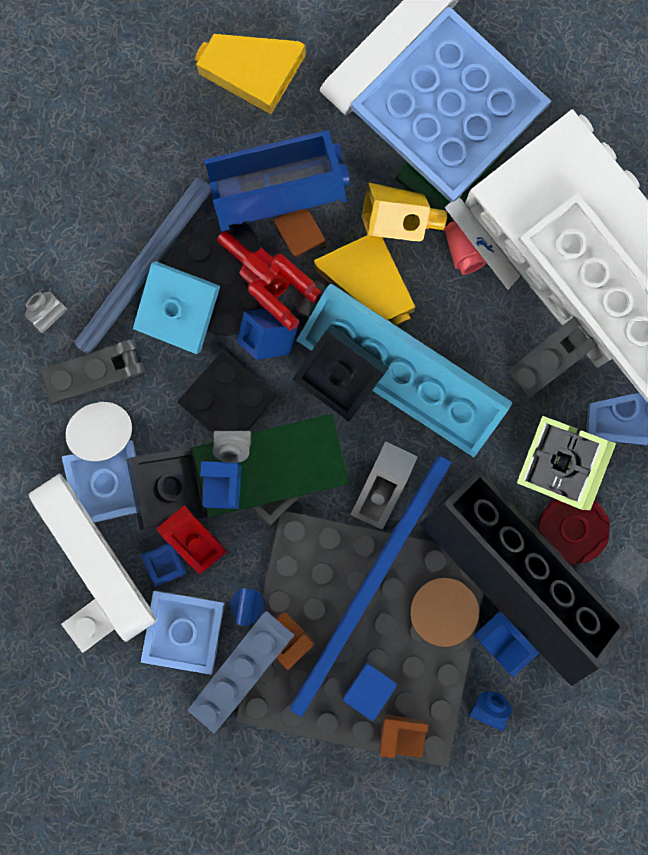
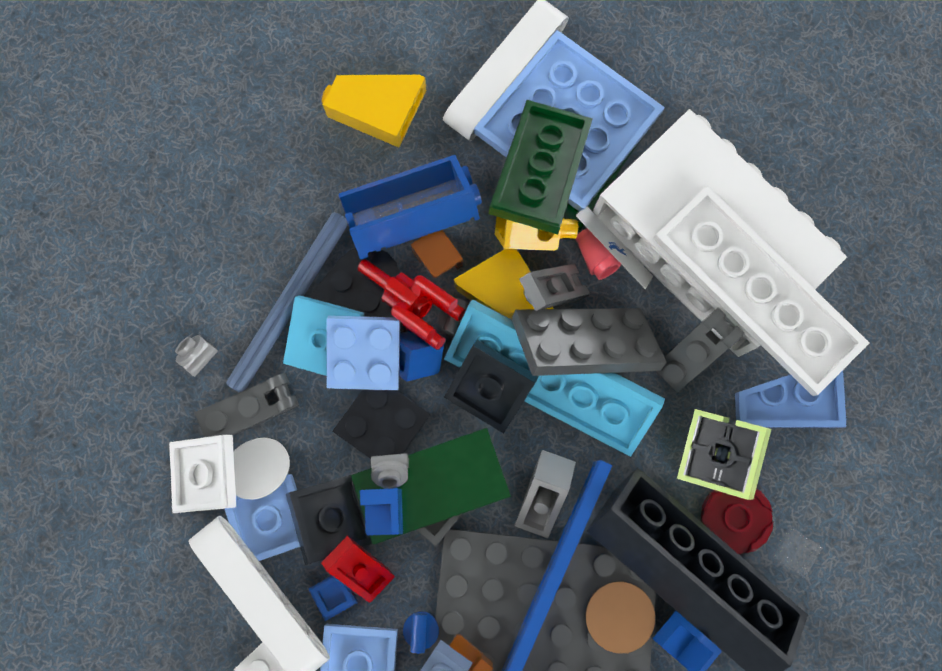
camera: 10 degrees left, 5 degrees down
(44, 431) = (202, 474): none -> white plate
(215, 326) = (363, 352): none -> light blue plate
(414, 153) = (541, 167): none -> dark green tile
(415, 278) = (553, 287): none -> dark grey plate
(442, 336) = (587, 341): none -> dark grey plate

